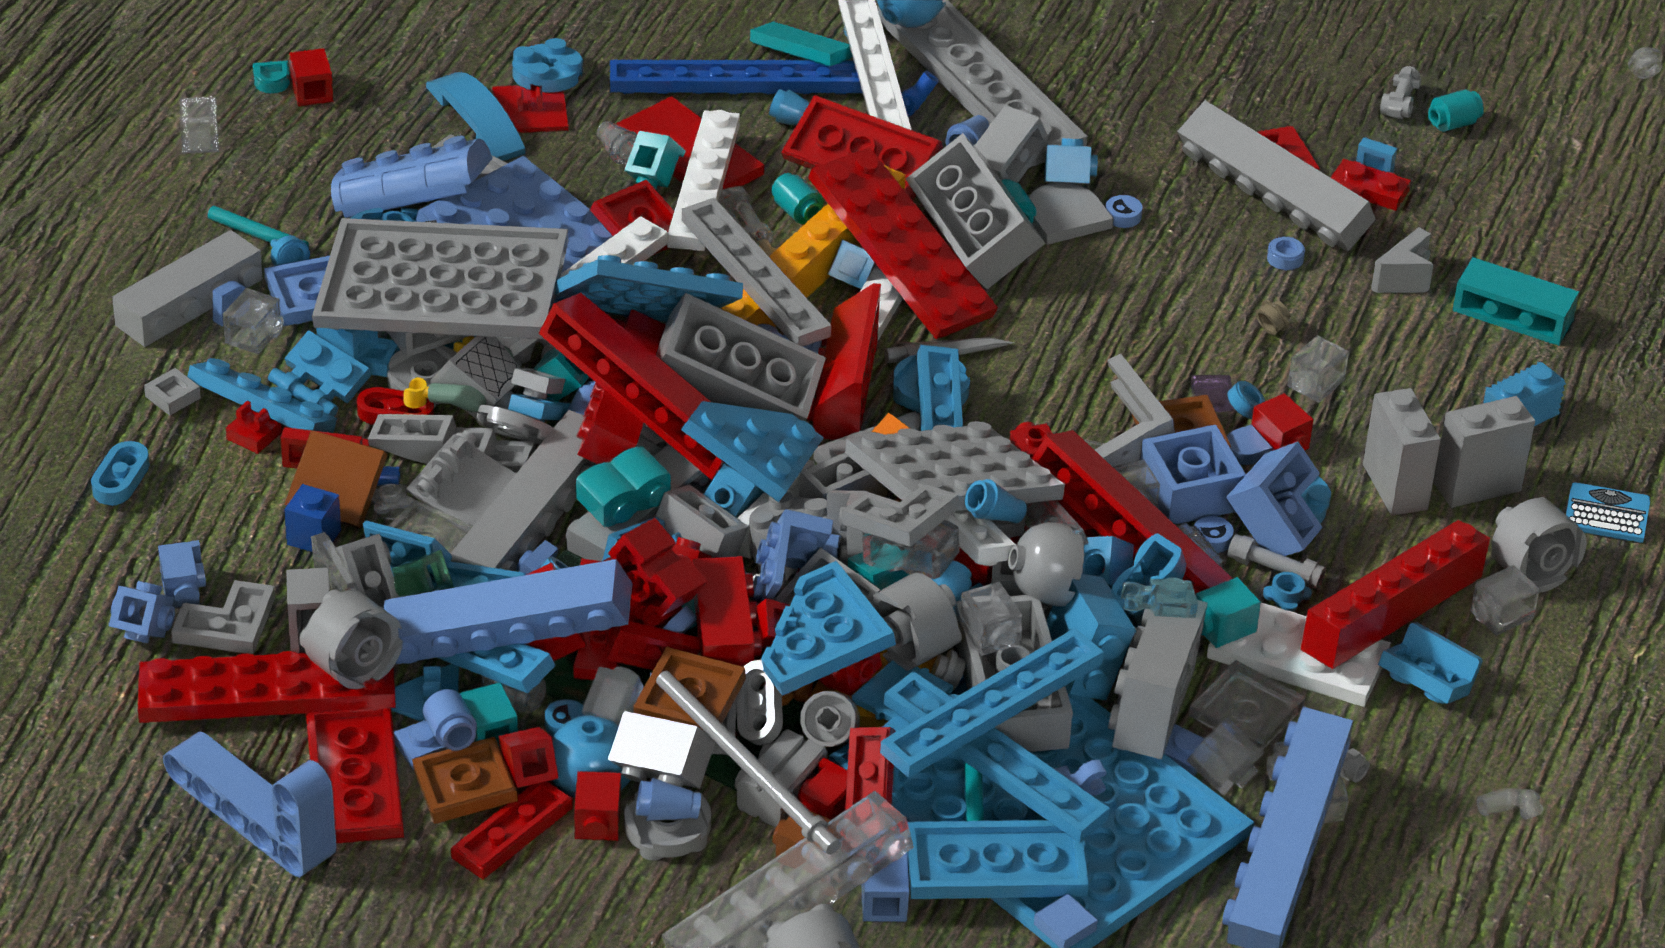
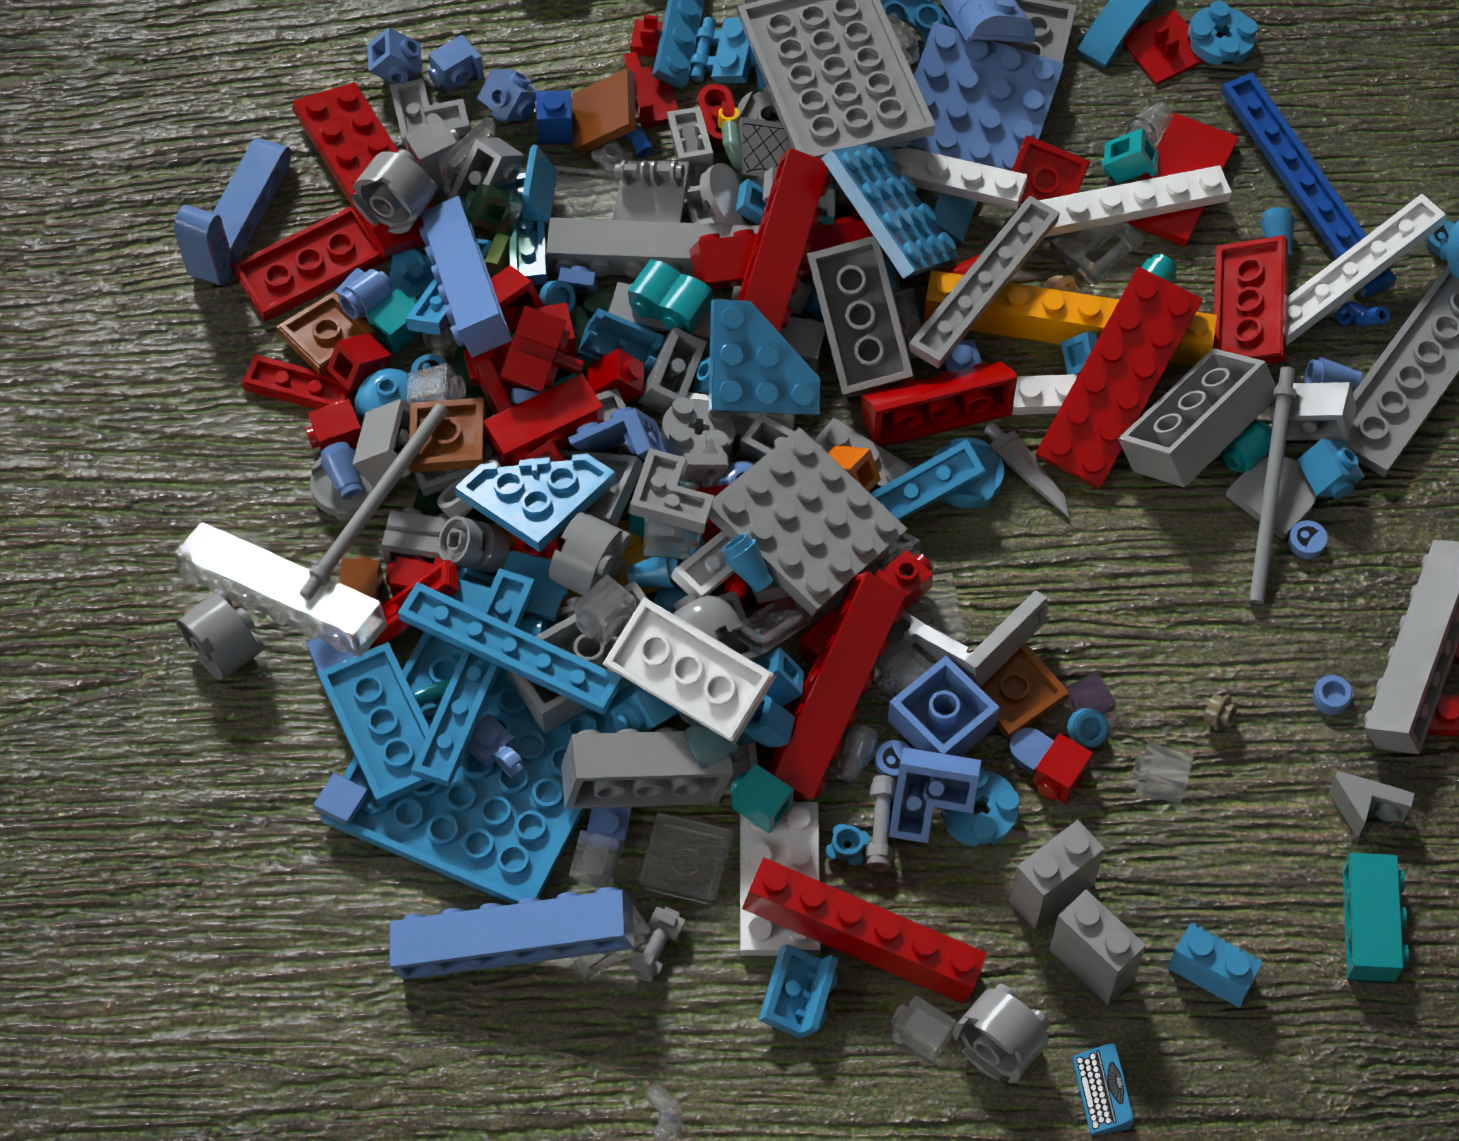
camera: 70 degrees right, 20 degrees up
(248, 546) = (508, 95): none -> medium blue brick
(801, 43) = (1372, 197): teal tile -> none
(993, 147) = (1284, 395): none -> light grey bar
(1104, 567) = (689, 670): none -> white tile

